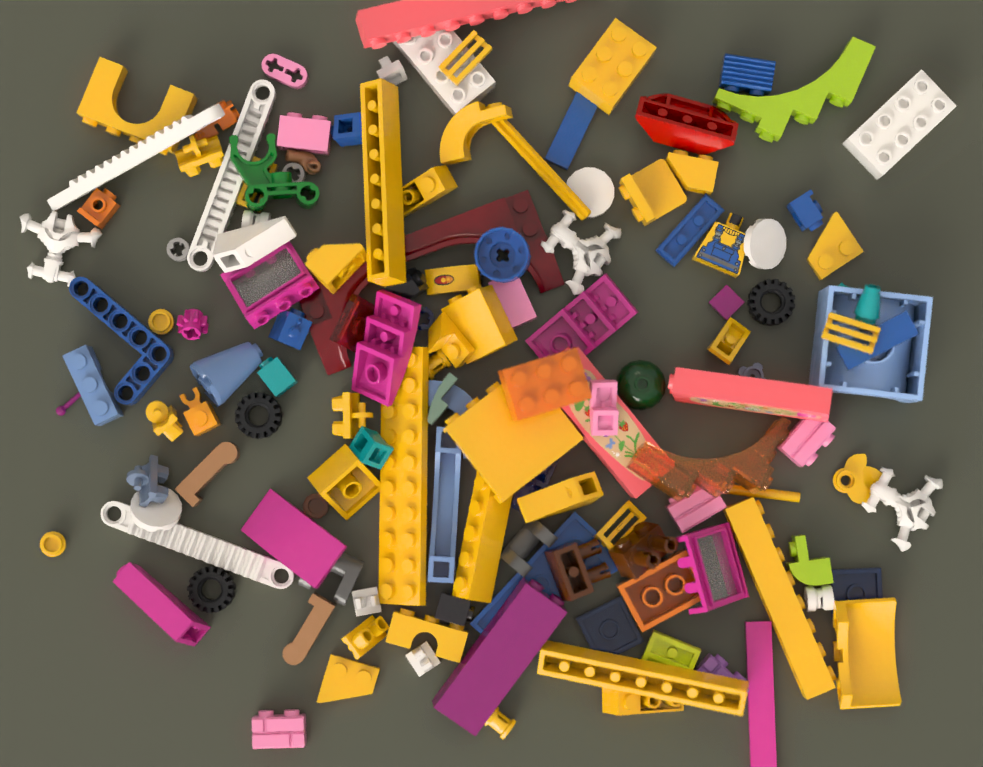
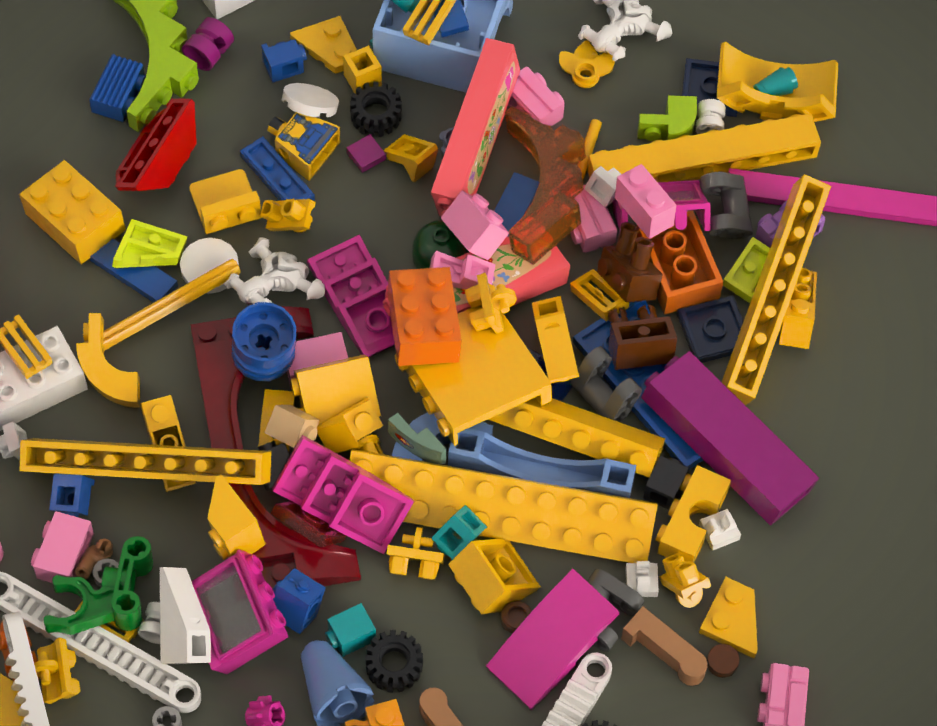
camera: 80 degrees left, 25 degrees down
(308, 676) = (723, 660): none -> reddish brown tile
(436, 294) = (290, 423): none -> tan brick
(500, 723) = (811, 452): yellow bush -> none
(569, 440) = (492, 302): none -> yellow hips
(593, 138) = (148, 246): none -> neon yellow wing
(644, 248) = (288, 214): none -> yellow hips
(649, 411) = (475, 224): none -> bright pink piece
(690, 437) = (516, 199): none -> blue tile
(690, 555) = (645, 201): none -> bright pink piece
(693, 173) = (214, 155): yellow slope -> none
(718, 516) = (603, 185): none -> white tile
(727, 632) = (736, 219): none -> dark grey connector
(805, 282) = (362, 68): none -> yellow brick
(807, 142) = (208, 43): none -> magenta wheel
(865, 653) = (778, 83): none -> teal cone

